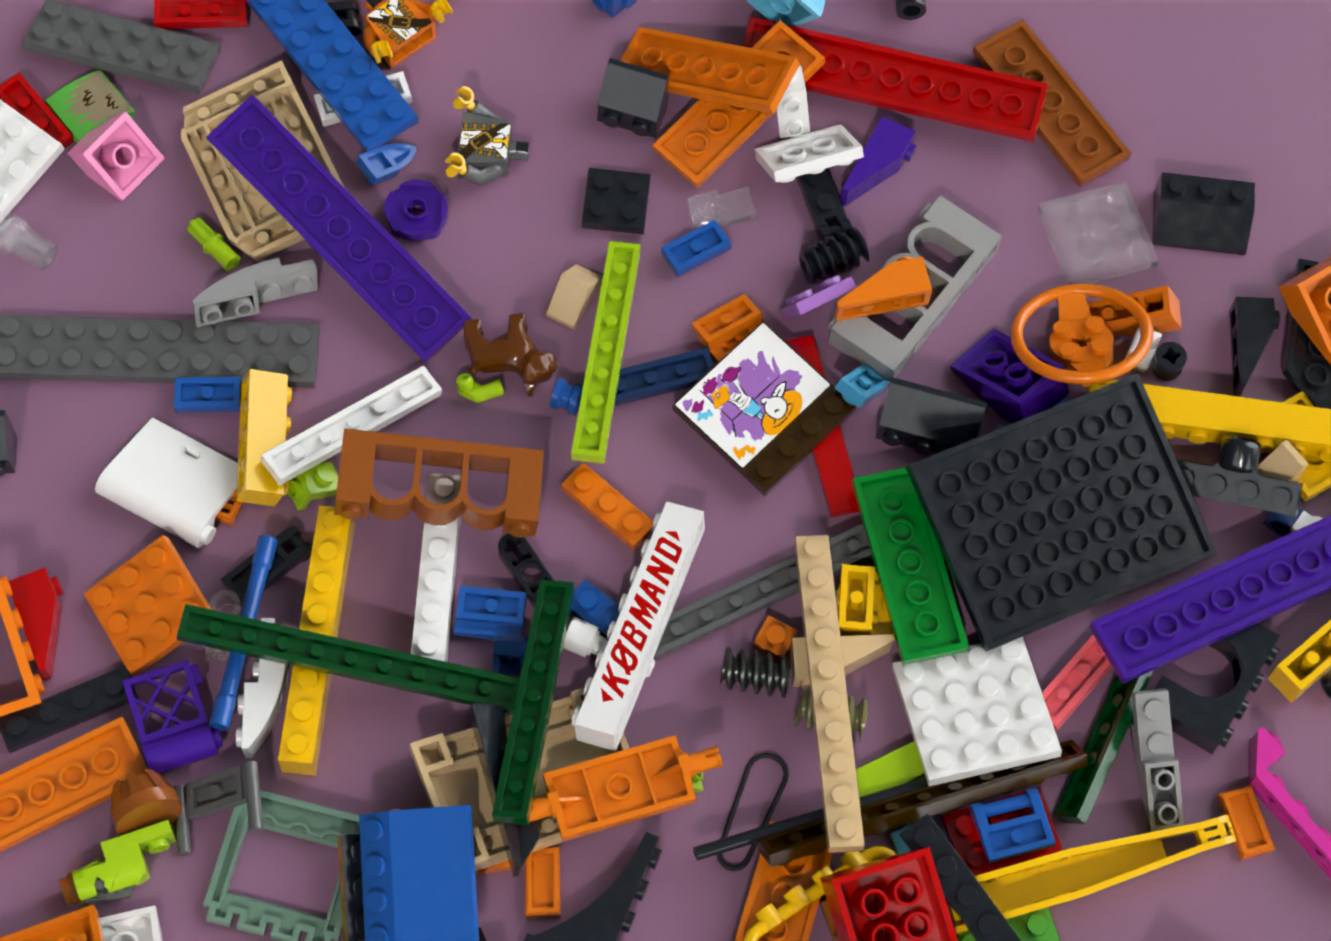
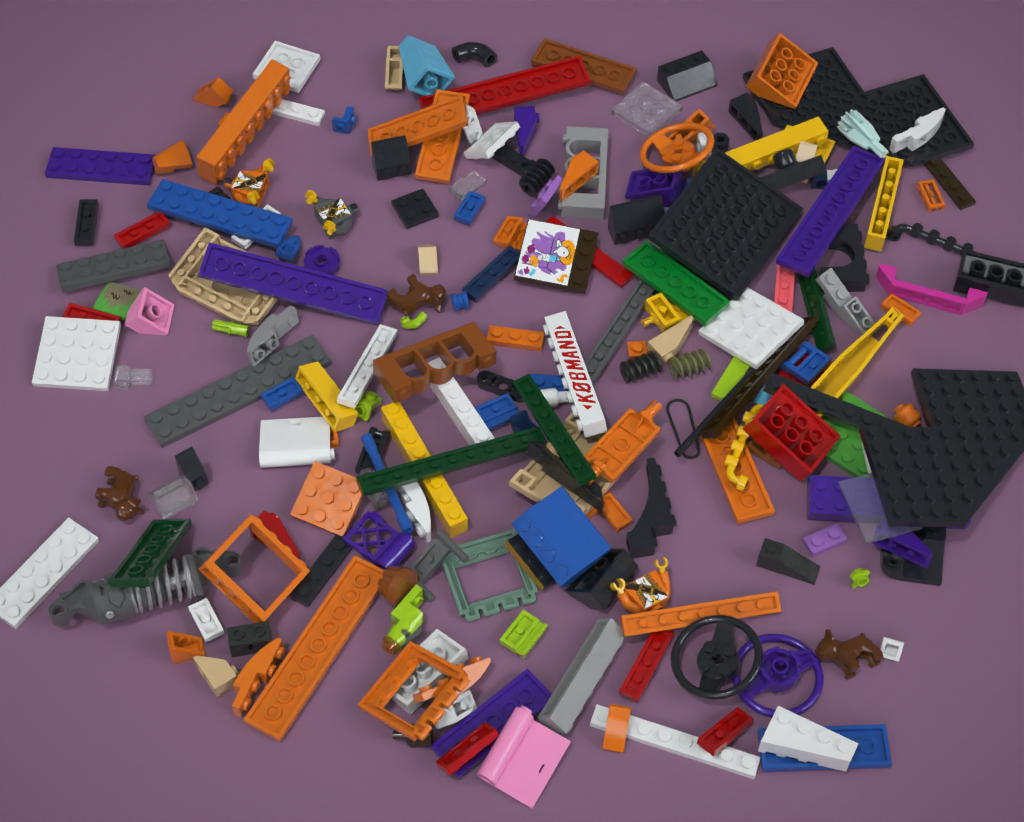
camera: 30 degrees left, 10 degrees down
(606, 353) = (465, 270): lime plate -> none
(829, 695) = (685, 353): tan plate -> none
(862, 385) = (594, 223): dark azure plate -> none

